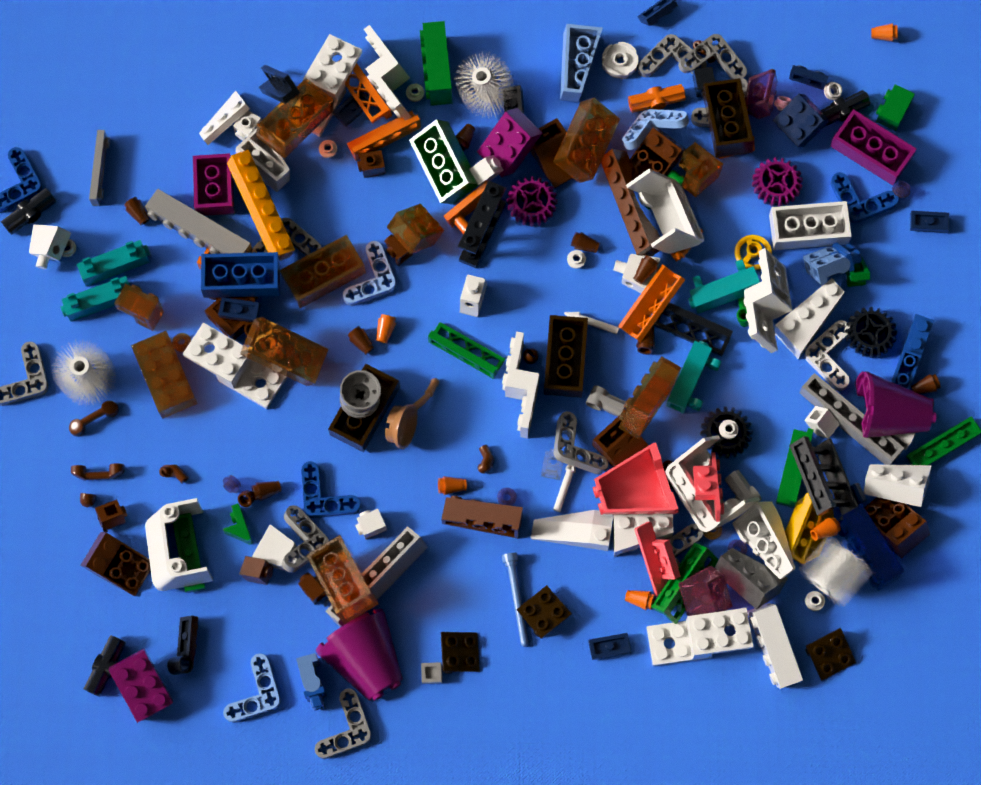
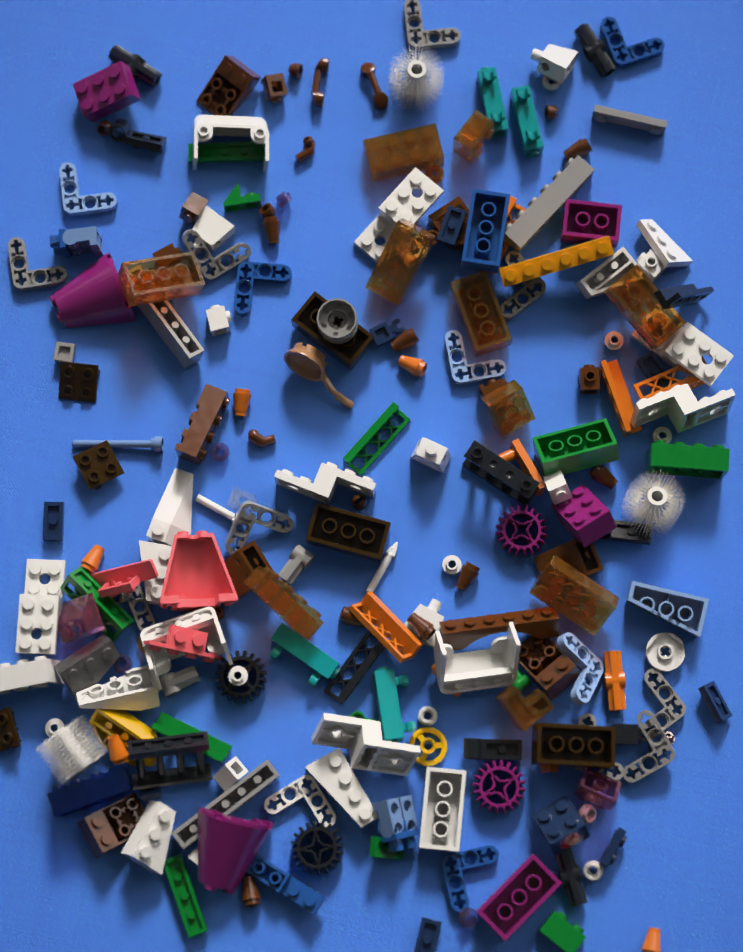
camera: 100 degrees right, 5 degrees up
(100, 243) = (550, 112): none -> hinge
(182, 685) = (102, 126): none -> reddish brown hinge
(355, 360) = (384, 333): none -> dark blue plate
(724, 251) = (432, 711): none -> white plate
(743, 193) = (492, 749): none -> black plate

